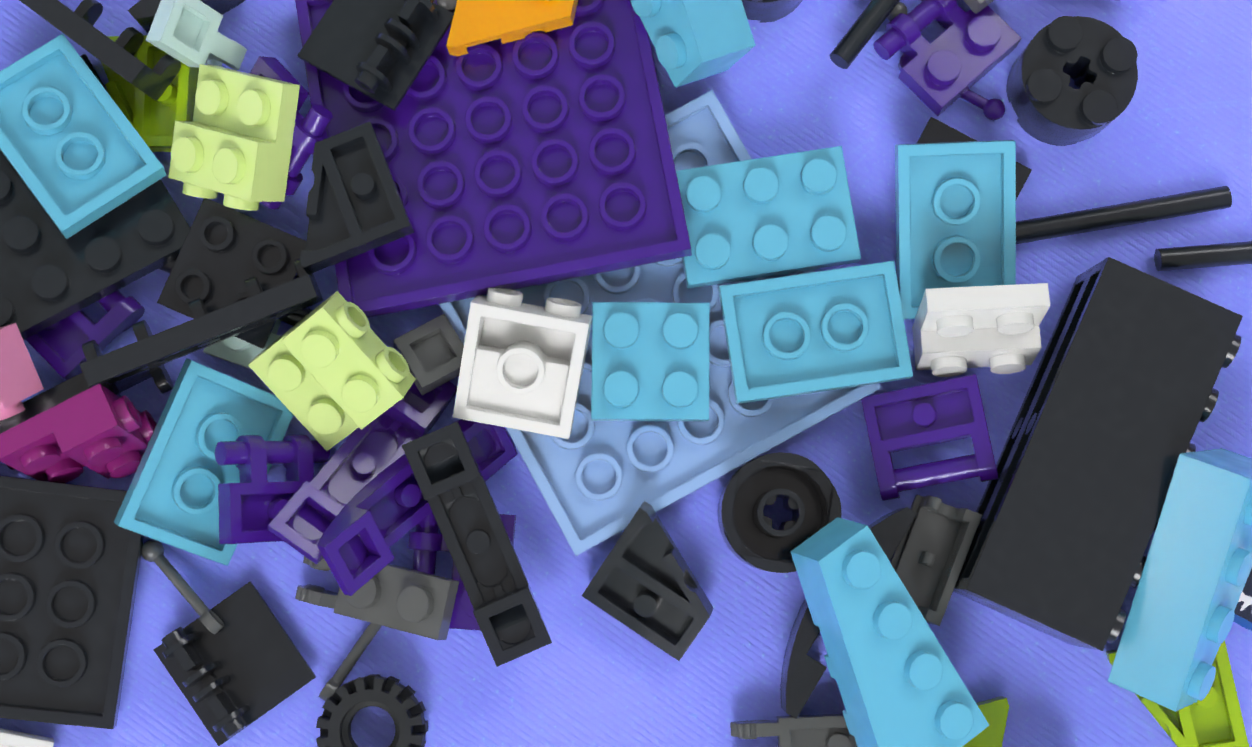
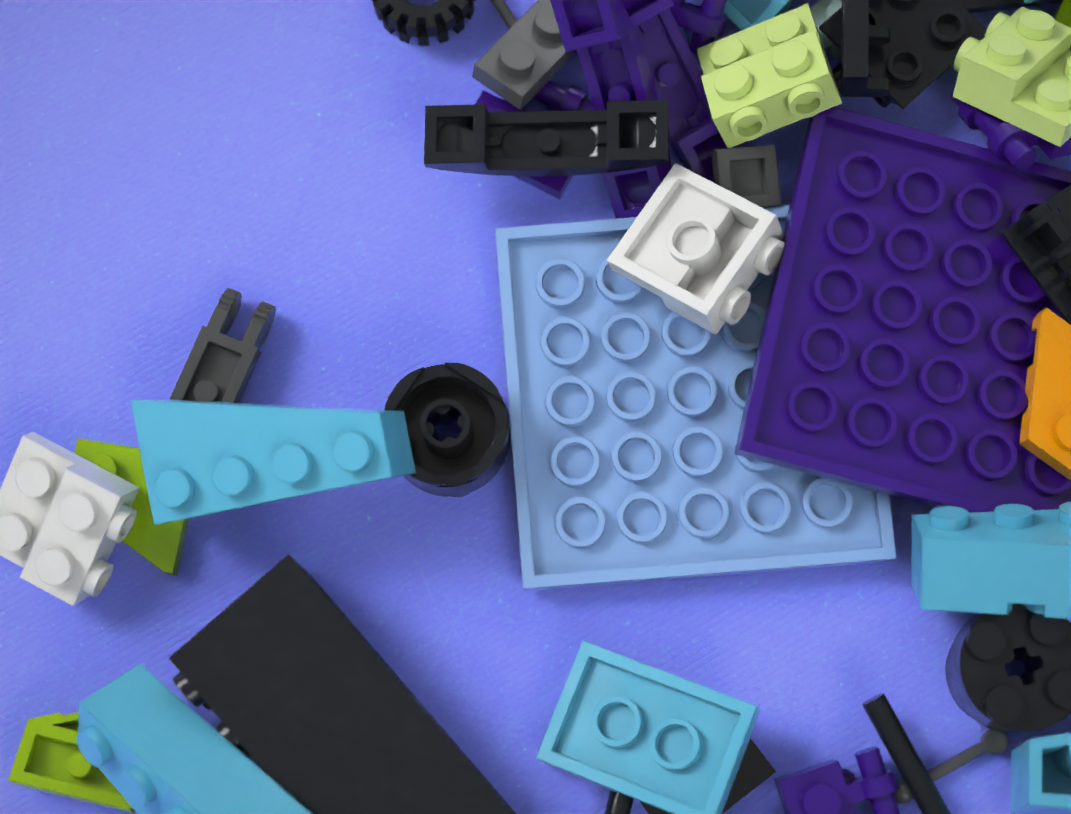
camera: 120 degrees right, 5 degrees down
(352, 200) = (926, 153): black wing -> none
(650, 361) = (647, 373): medium azure plate -> none
(651, 586) = (435, 285): black wing -> none
(768, 217) = (742, 550): medium azure plate -> none
(800, 671) = (374, 512): black slope -> none
(815, 332) = (605, 541): medium azure plate -> none
(923, 418) = (473, 620): dark purple plate -> none
(934, 553) = (338, 557): dark grey hinge -> none
(979, 328) = (535, 703): white plate -> none

